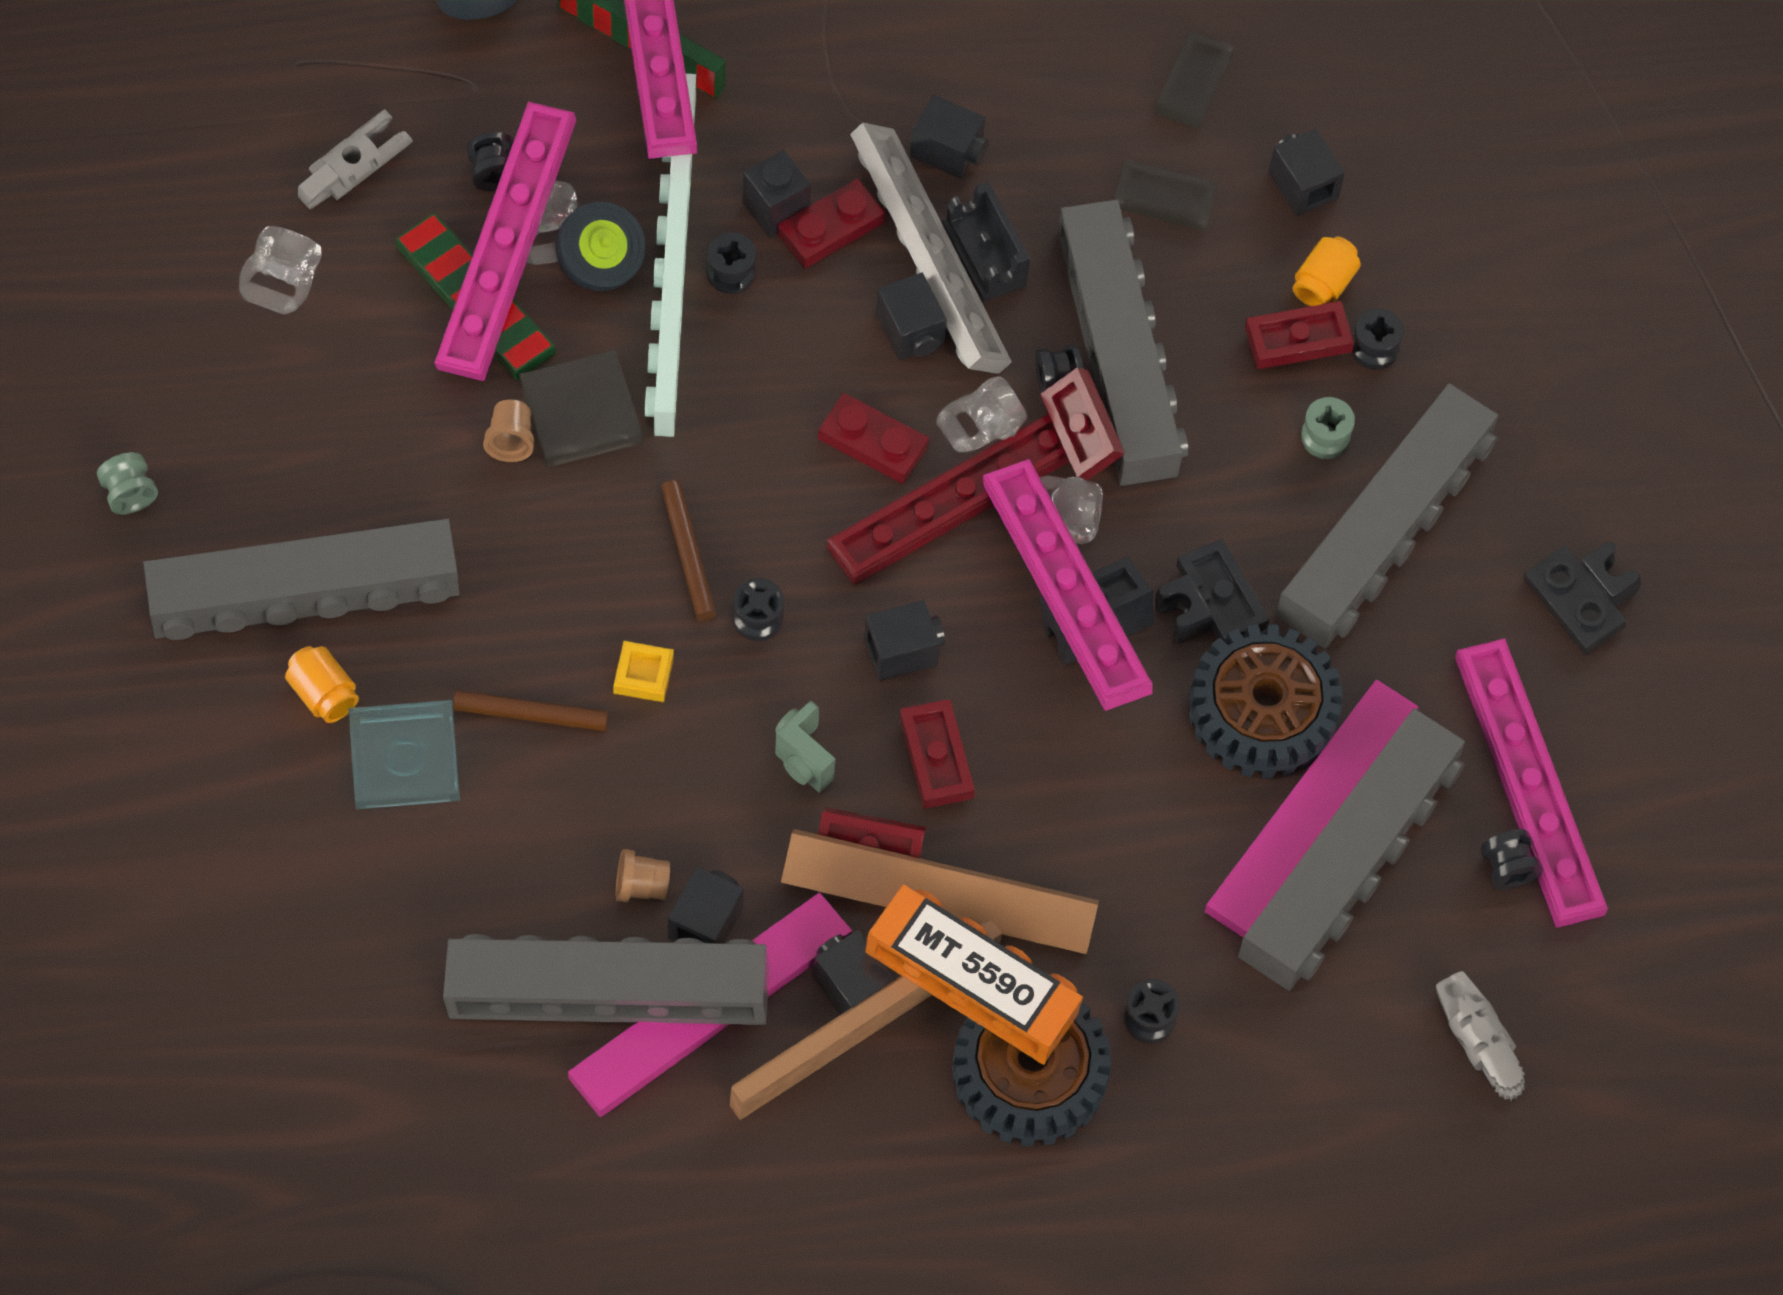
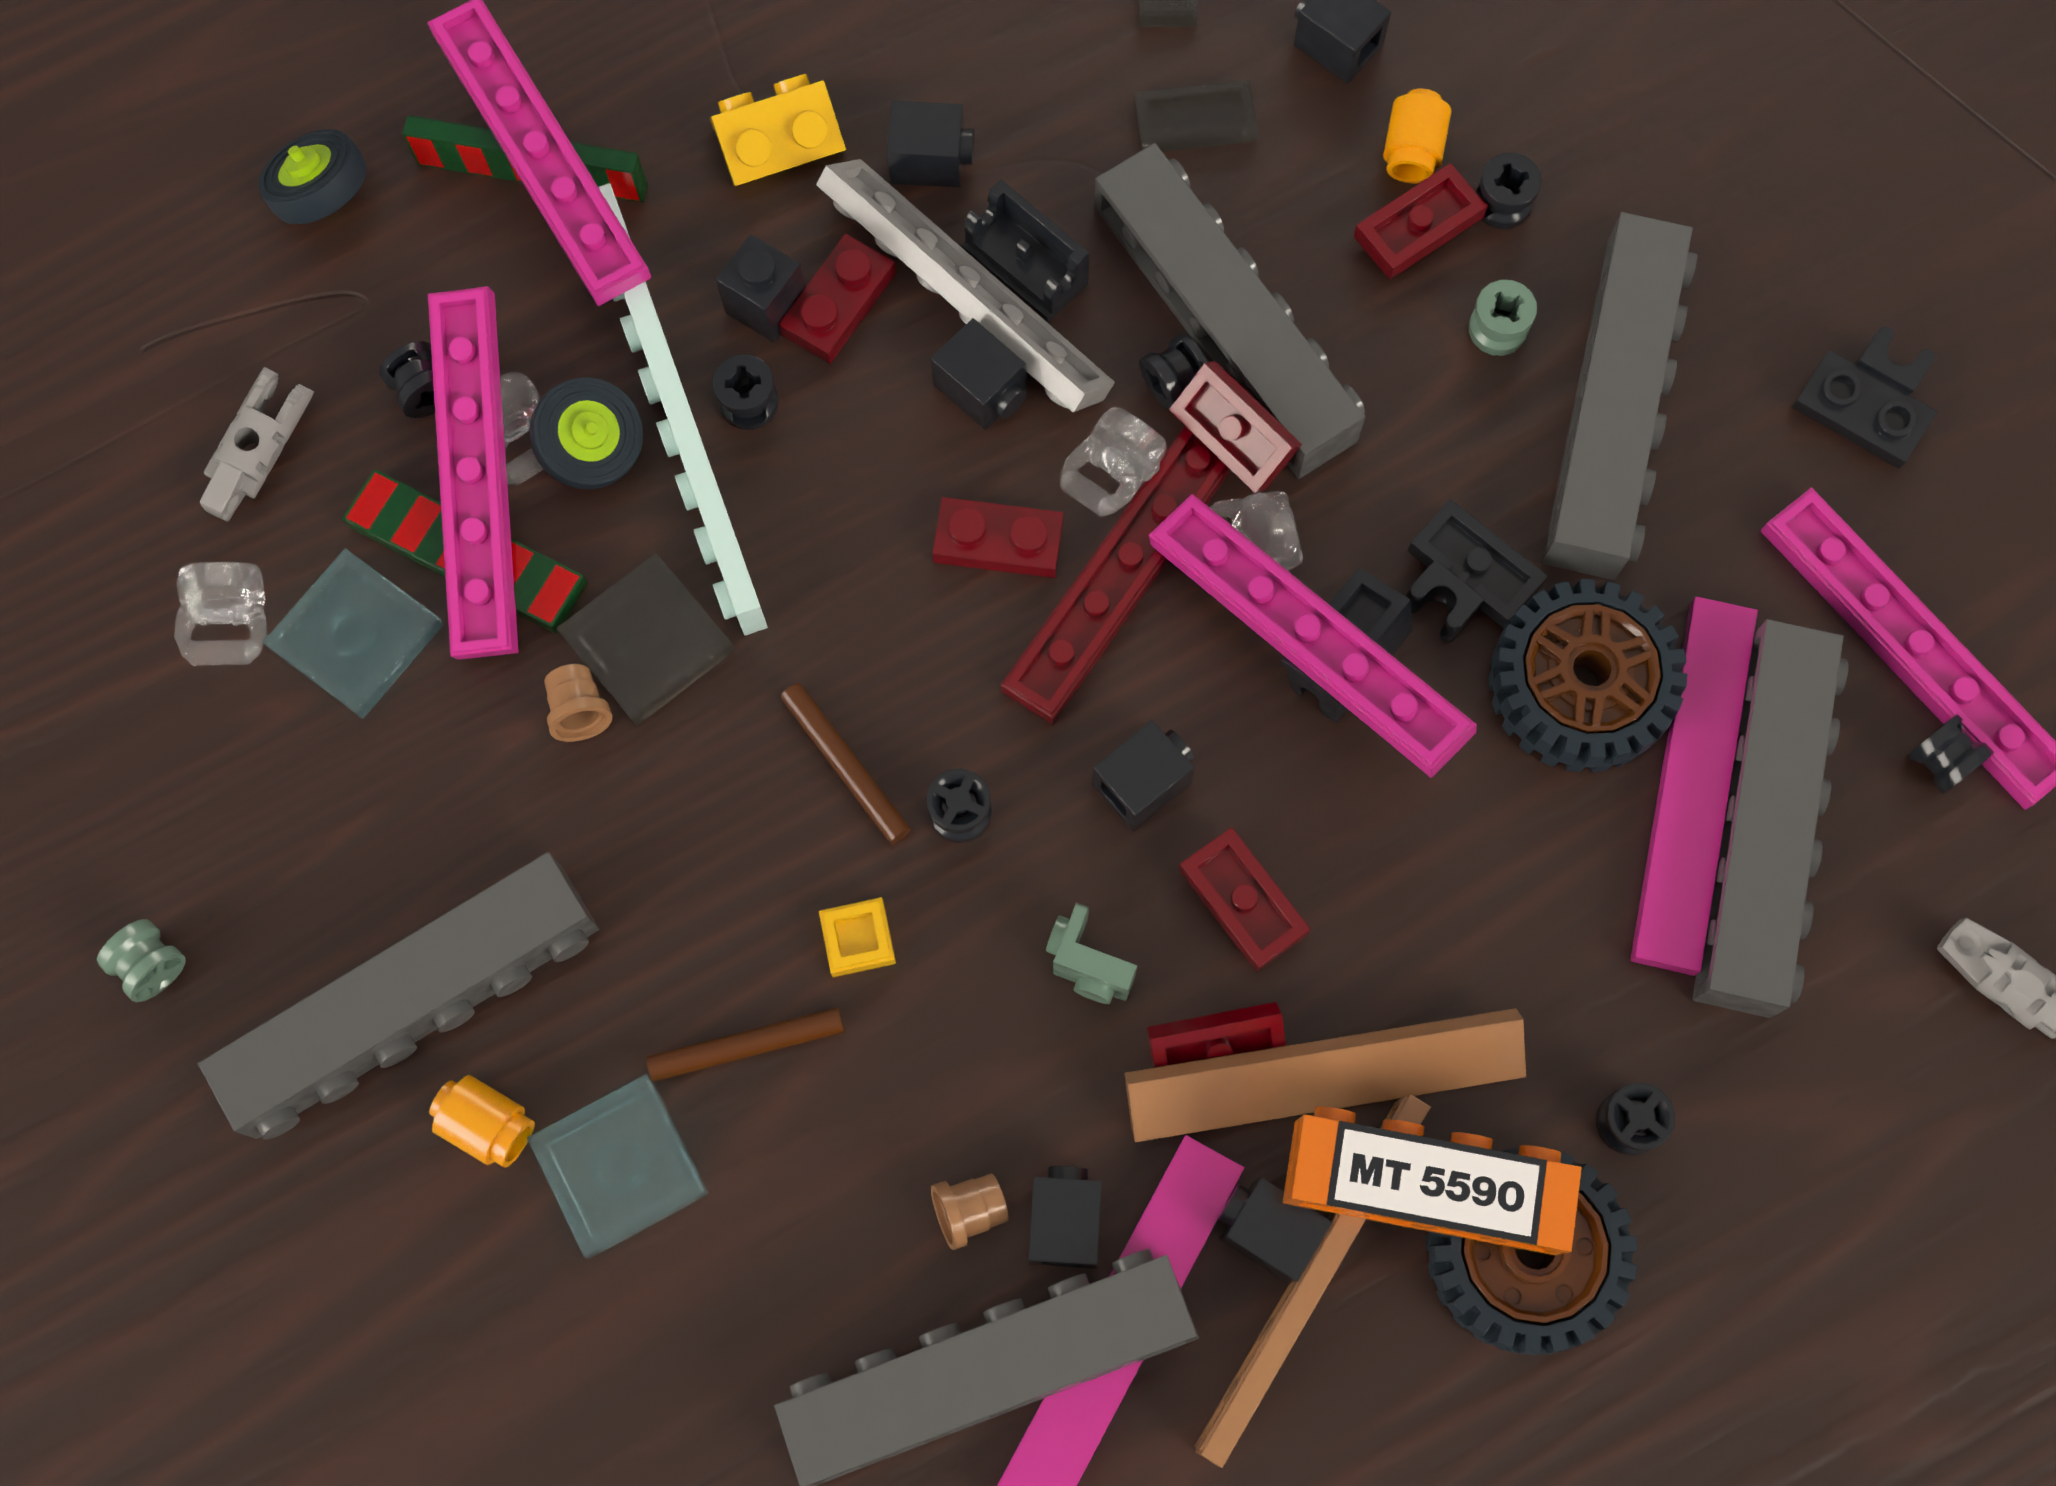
camera: 15 degrees left, 10 degrees up
(369, 322) = (353, 633): none -> clear light blue tile
(839, 85) = (777, 131): none -> yellow bracket

